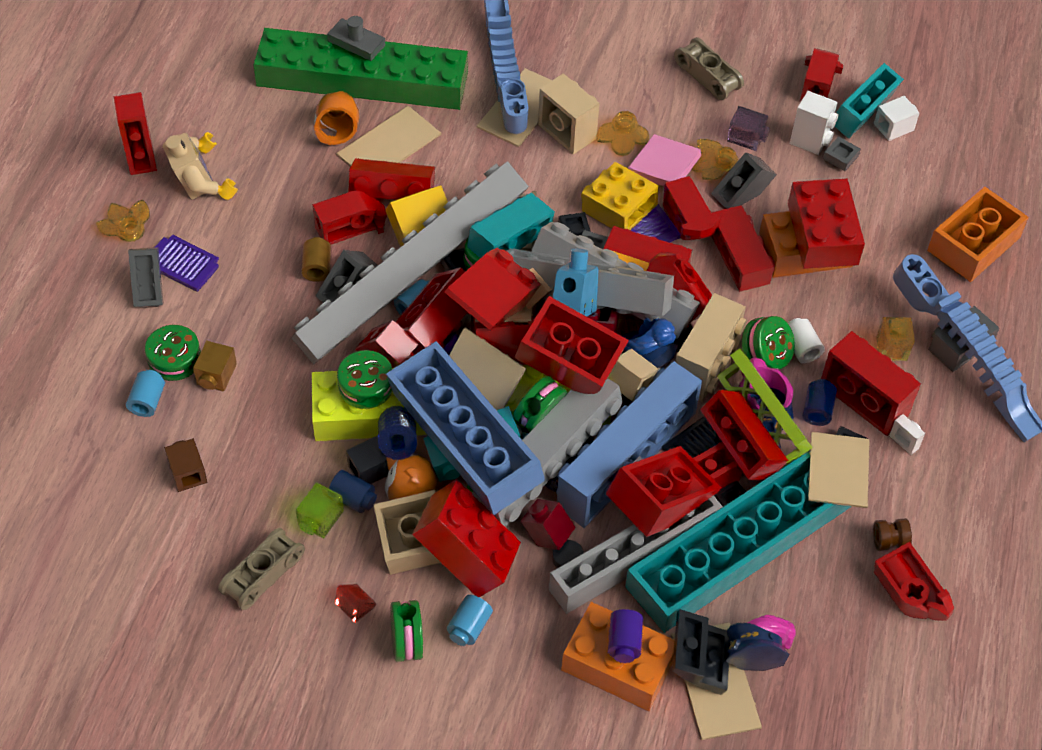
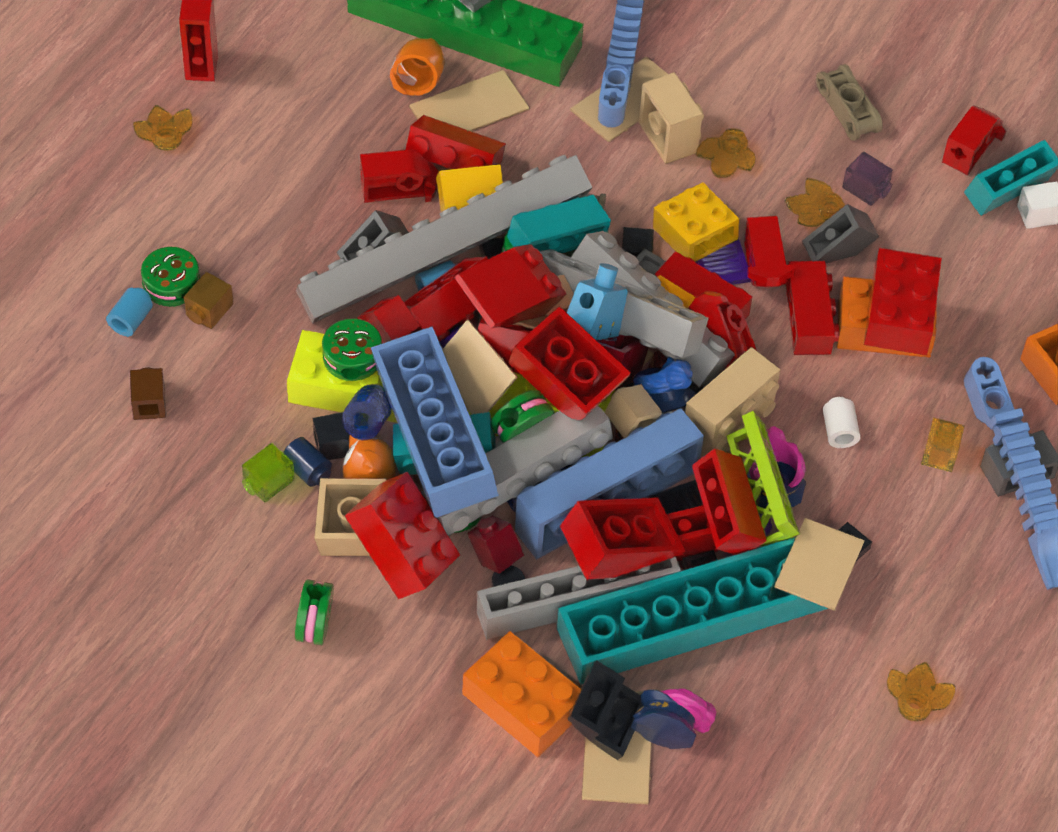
camera: 15 degrees right, 0 degrees up
(145, 277) = (165, 191): dark grey tile -> none
(186, 262) = (210, 184): dark purple window -> none
(190, 167) = (247, 84): tan torso -> none
(247, 583) = (174, 526): dark tan piece -> none
(316, 259) = (348, 213): pearl gold brick -> none
(354, 601) = (274, 571): clear red slope -> none
(469, 620) = (382, 619): dark azure brick -> none
(625, 635) = (529, 670): dark purple brick -> none
(665, 160) = (761, 193): bright pink tile -> none
(769, 340) = (800, 414): green head -> none
(813, 123) = (940, 189): white brick -> none
(819, 402) = (833, 492): clear blue brick -> none
(841, 153) = (964, 230): dark grey plate -> none
(870, 382) = (892, 483): red brick -> none
(891, 534) = (858, 647): reddish brown wheel -> none
(906, 573) = (856, 691): red piece -> none
(907, 434) = (916, 548): white plate -> none
(954, 558) = (920, 689): none -> clear yellow plate

